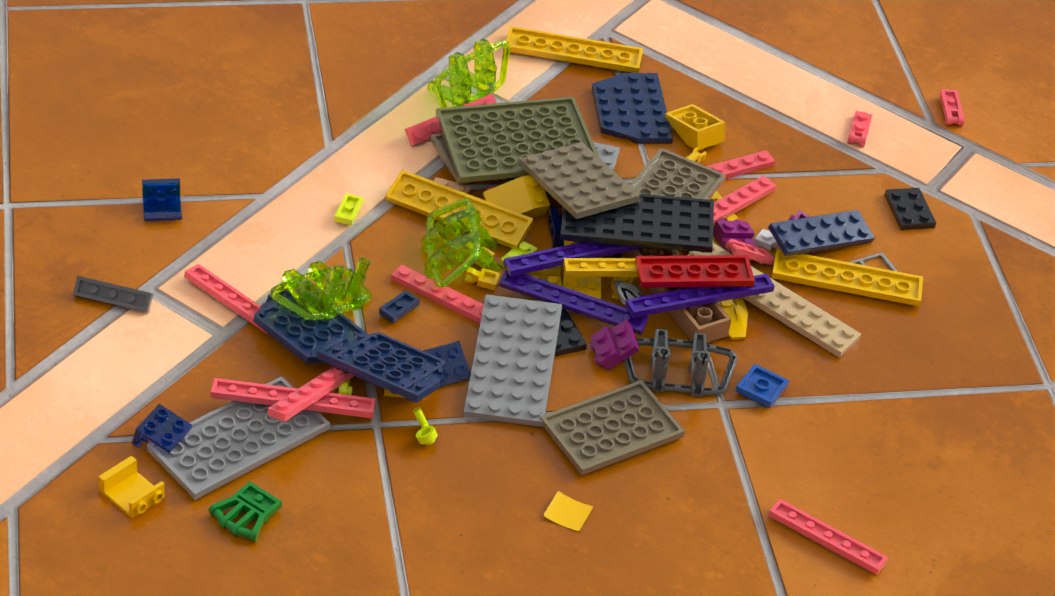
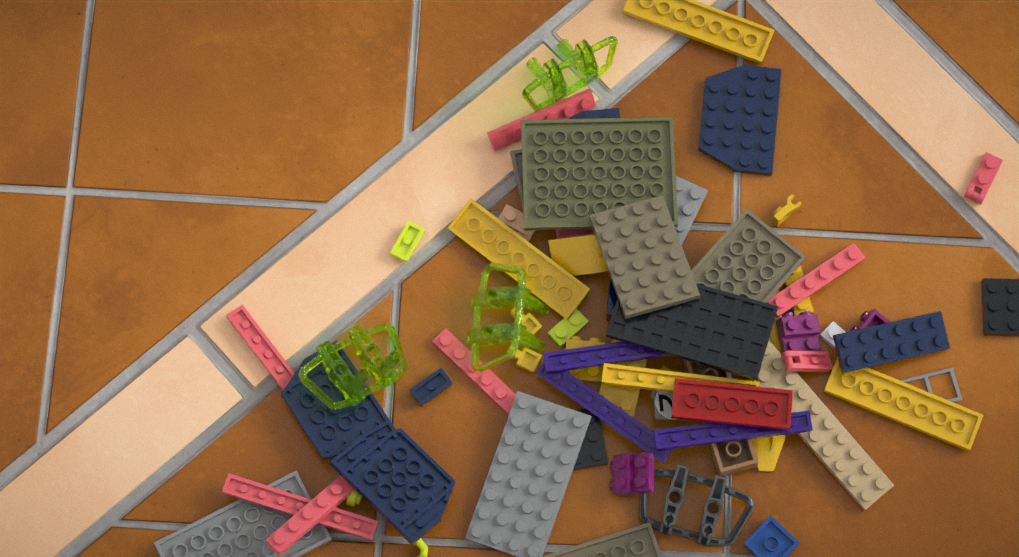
camera: 15 degrees right, 30 degrees up
(113, 294) = (152, 336): dark grey plate -> none
(161, 199) = (220, 211): clear blue bracket -> none
(162, 429) = (171, 529): clear blue bracket -> none
(455, 363) = (464, 469): clear blue bracket -> none
(697, 126) = (800, 161): yellow slope -> none
(744, 164) = (825, 223): coral plate -> none

